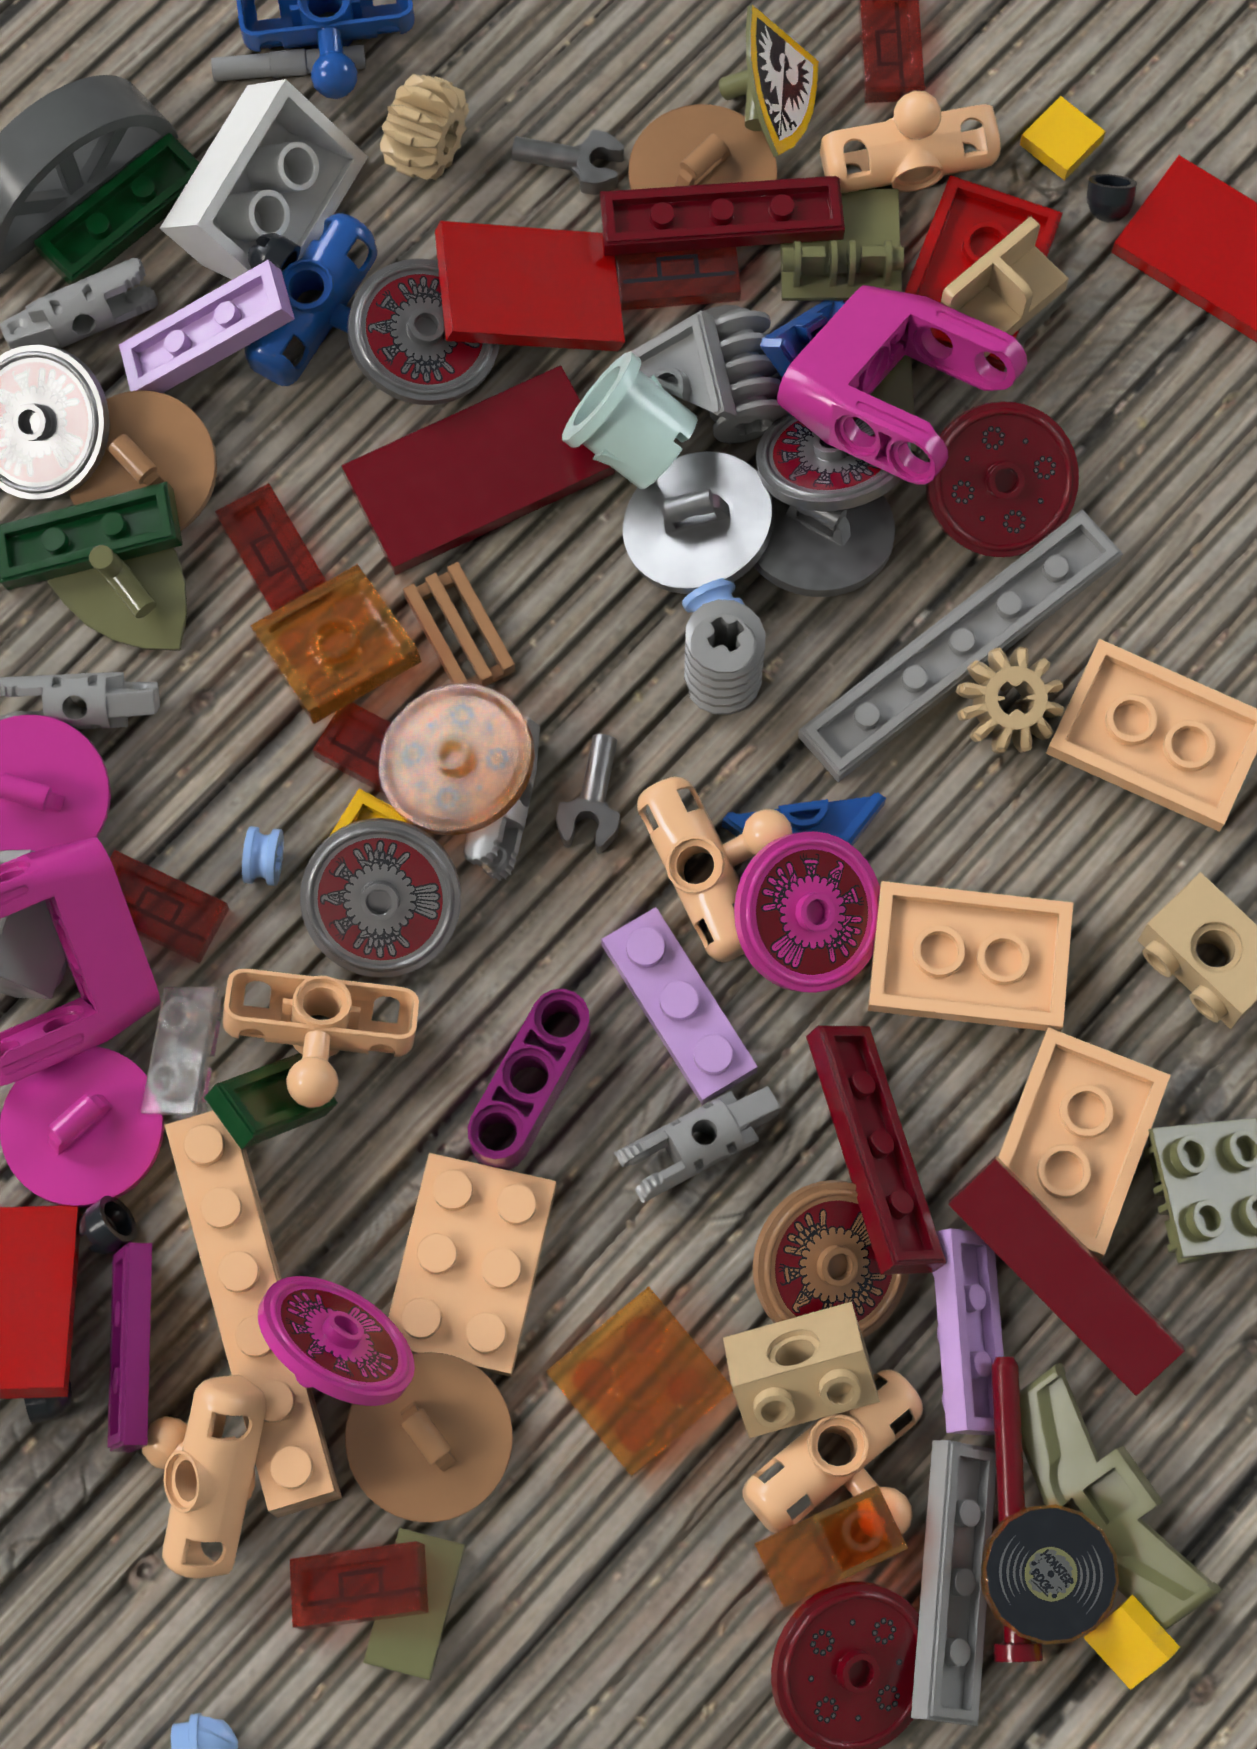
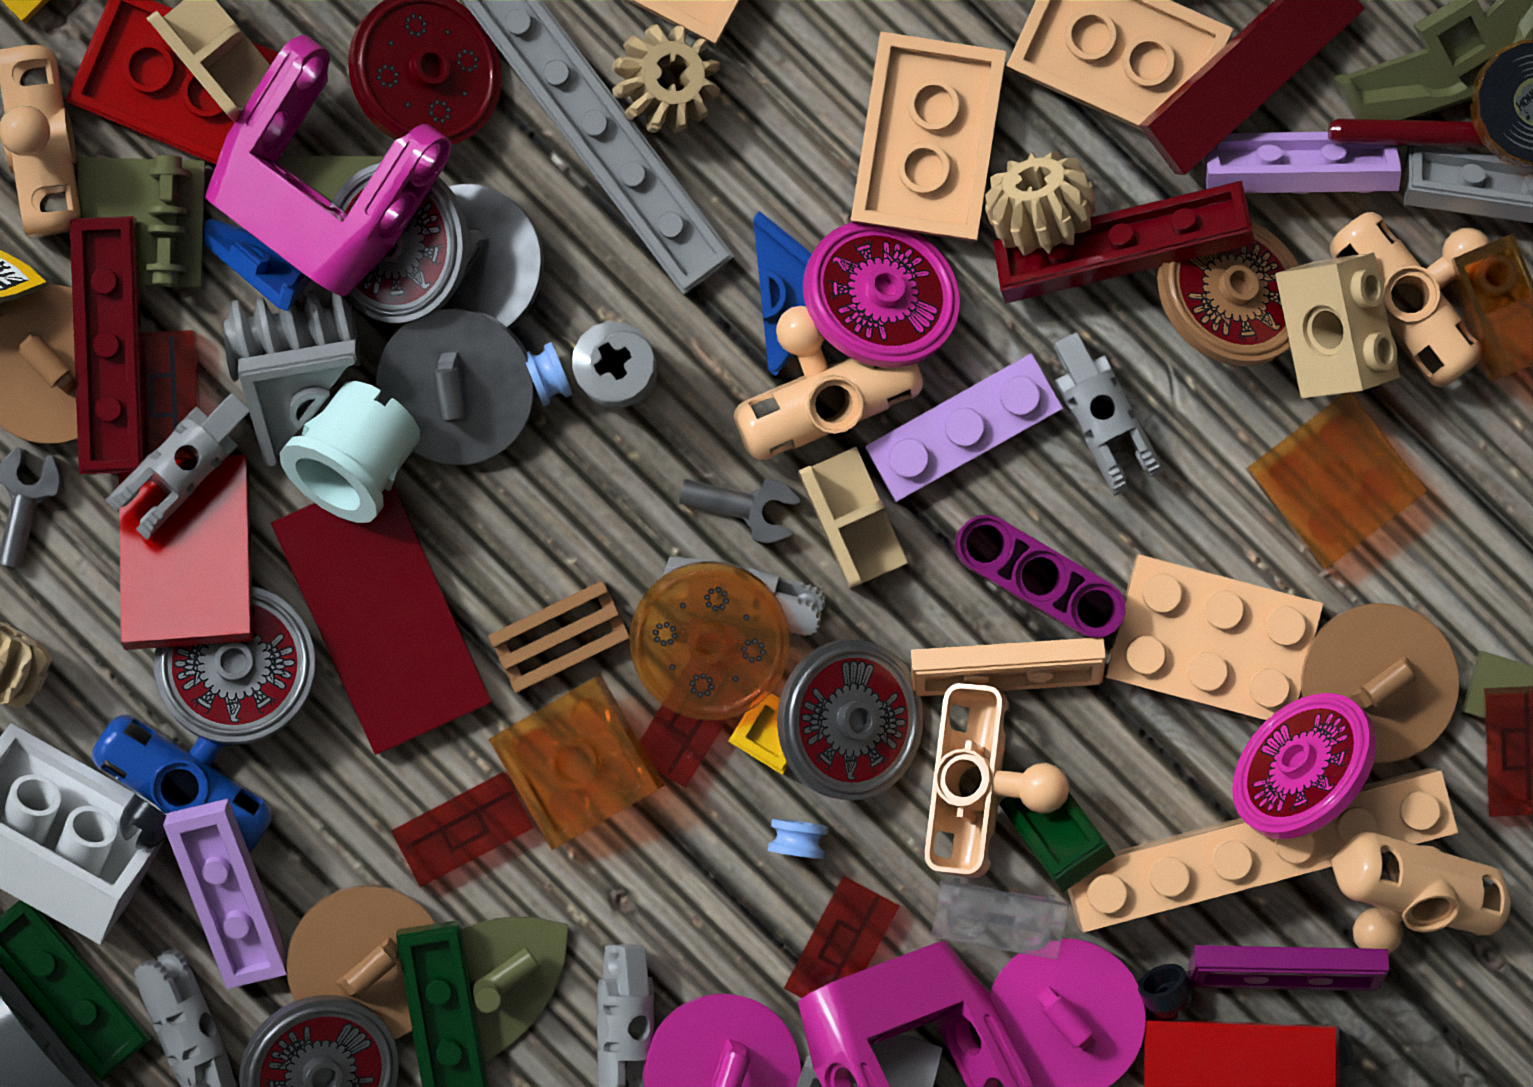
camera: 85 degrees left, 15 degrees up
(438, 1053) = (1009, 665): none -> light nougat tile
(582, 894) = (852, 517): none -> tan panel
(635, 299) = (203, 440): none -> light grey hinge
(910, 1062) = (1040, 202): none -> tan gear

